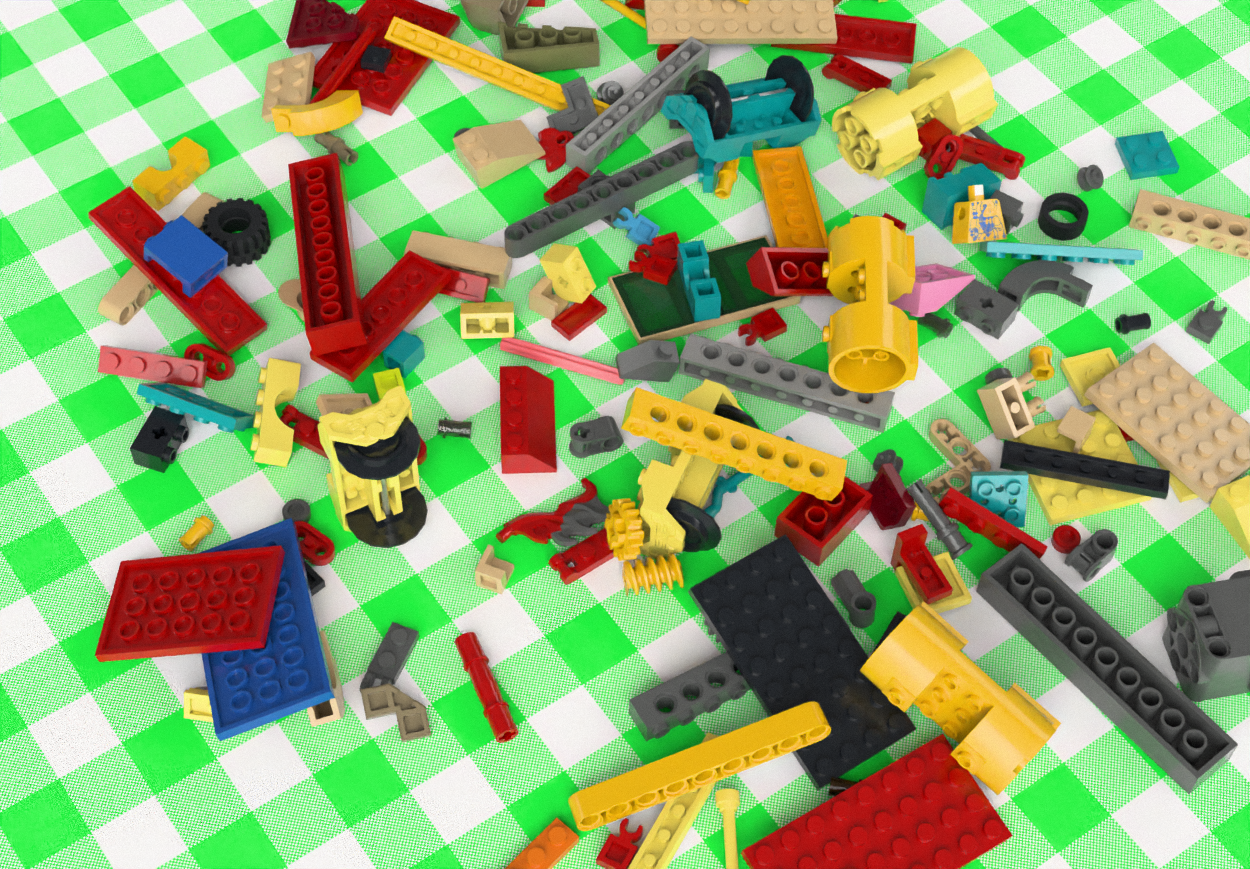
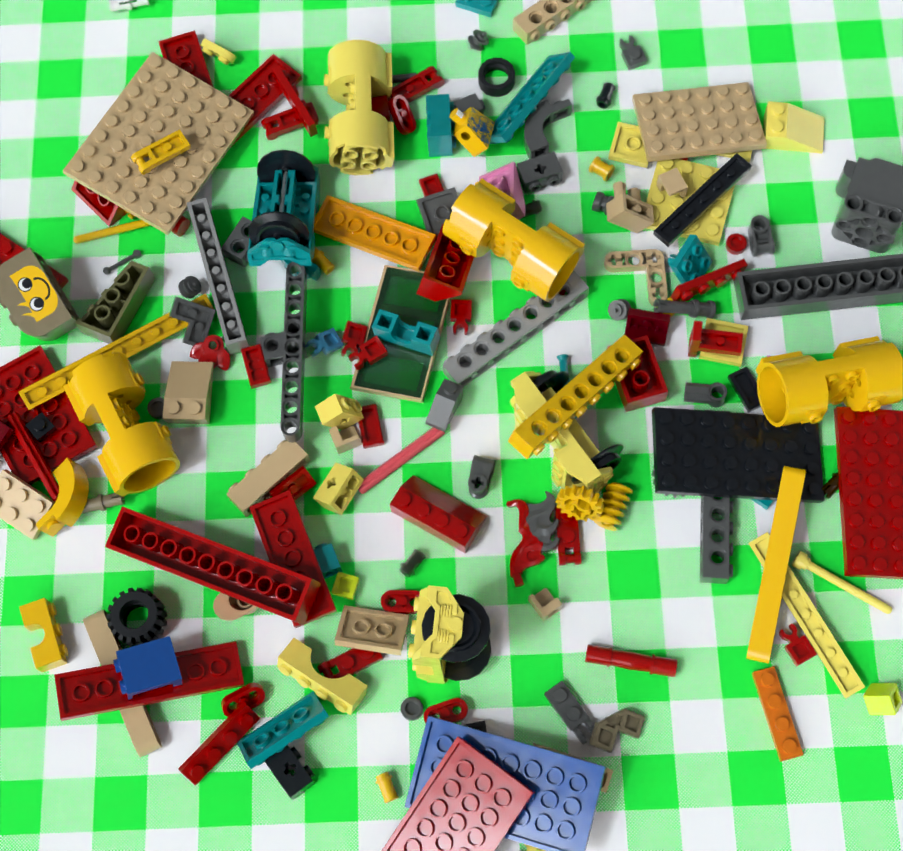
camera: 50 degrees left, 15 degrees up
(407, 128) = (137, 453): none -> yellow cylinder
(613, 40) = (136, 254): none -> dark grey hinge
(880, 56) = (291, 94): none -> red plate

